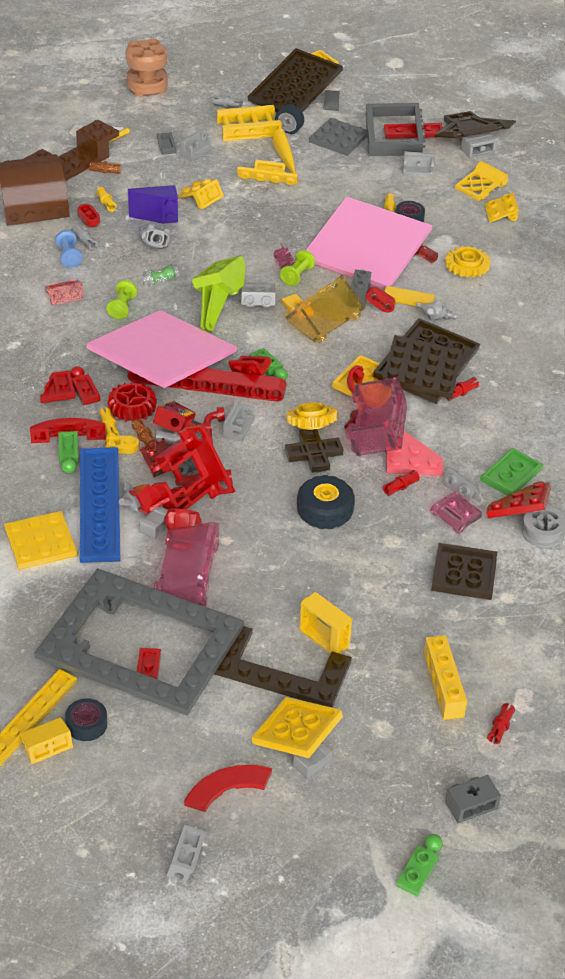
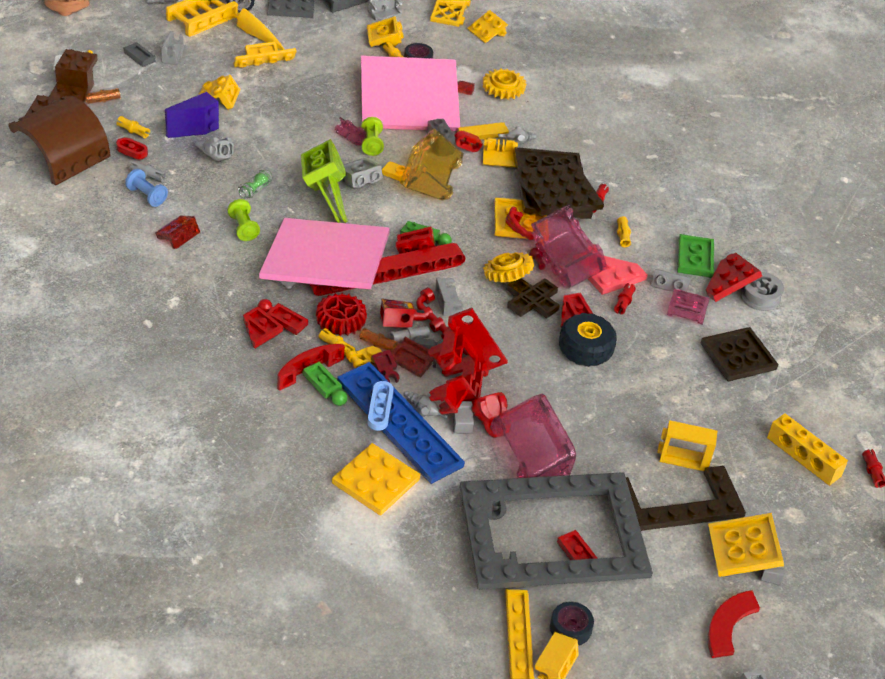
camera: 35 degrees left, 0 degrees up
(88, 483) = (380, 405): none -> light blue plate
(128, 454) = (385, 364): none -> dark red plate
(345, 470) = (573, 305): none -> red wing
(397, 184) = (385, 31): none -> yellow plate
(403, 318) = (499, 154): none -> yellow hinge
(458, 426) = (624, 231): none -> yellow pin

